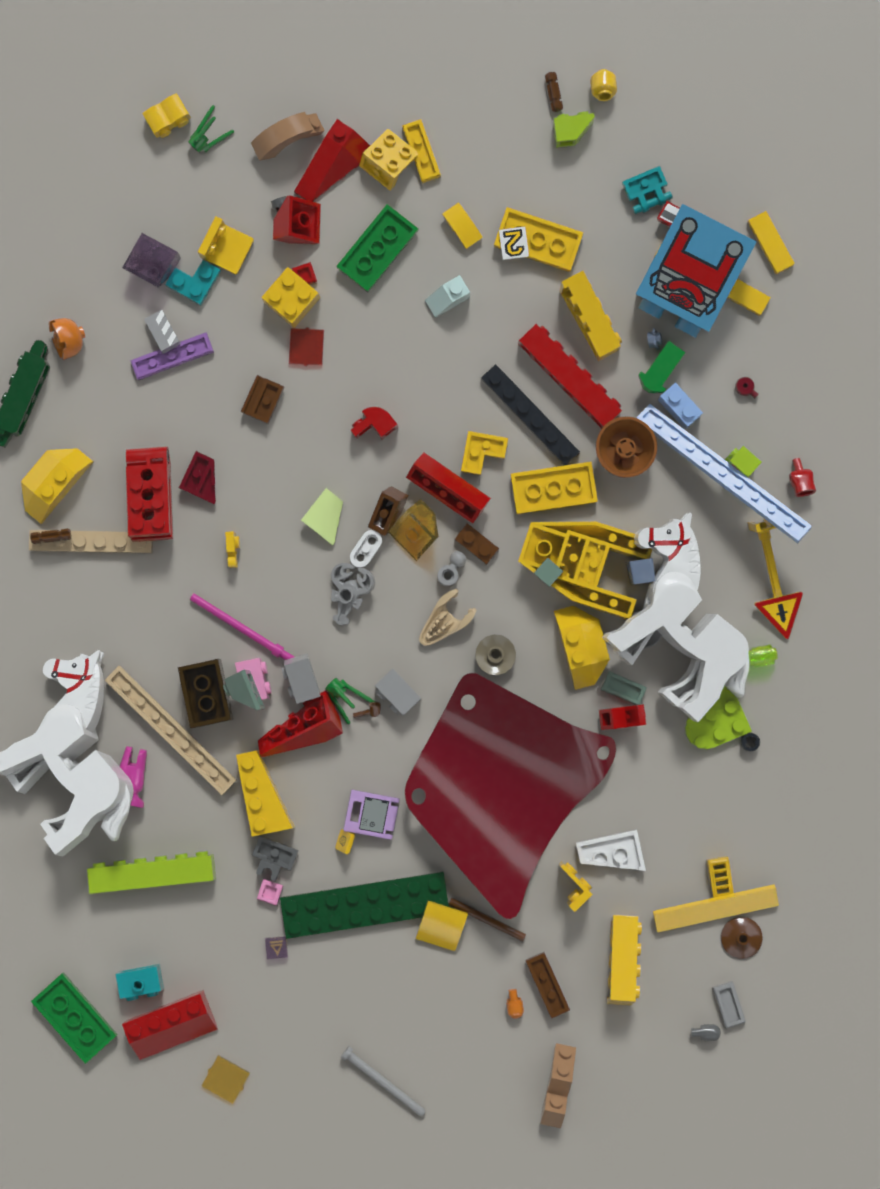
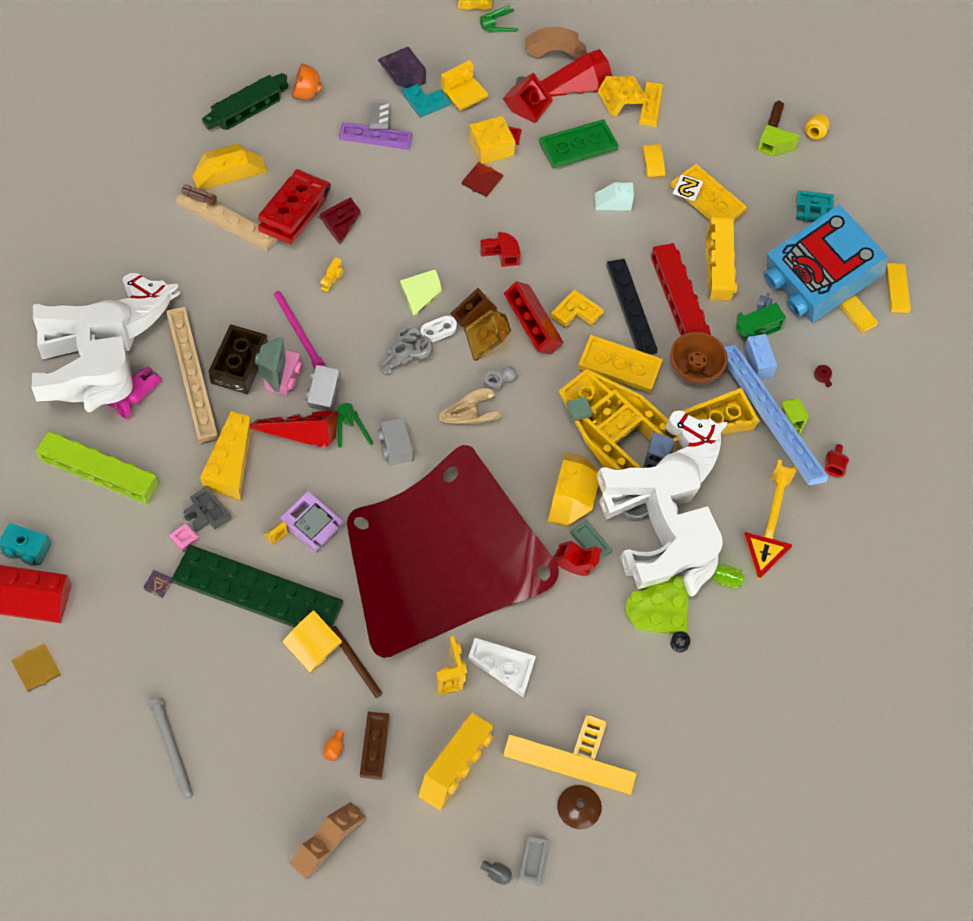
camera: 15 degrees right, 25 degrees down
(262, 399) = (425, 193): reddish brown plate -> none
(373, 711) = (367, 445): reddish brown hand -> none
(476, 543) = (531, 372): reddish brown plate -> none
(503, 647) = (497, 449): dark tan dish -> none
(673, 496) = (728, 408): none -> yellow wedge

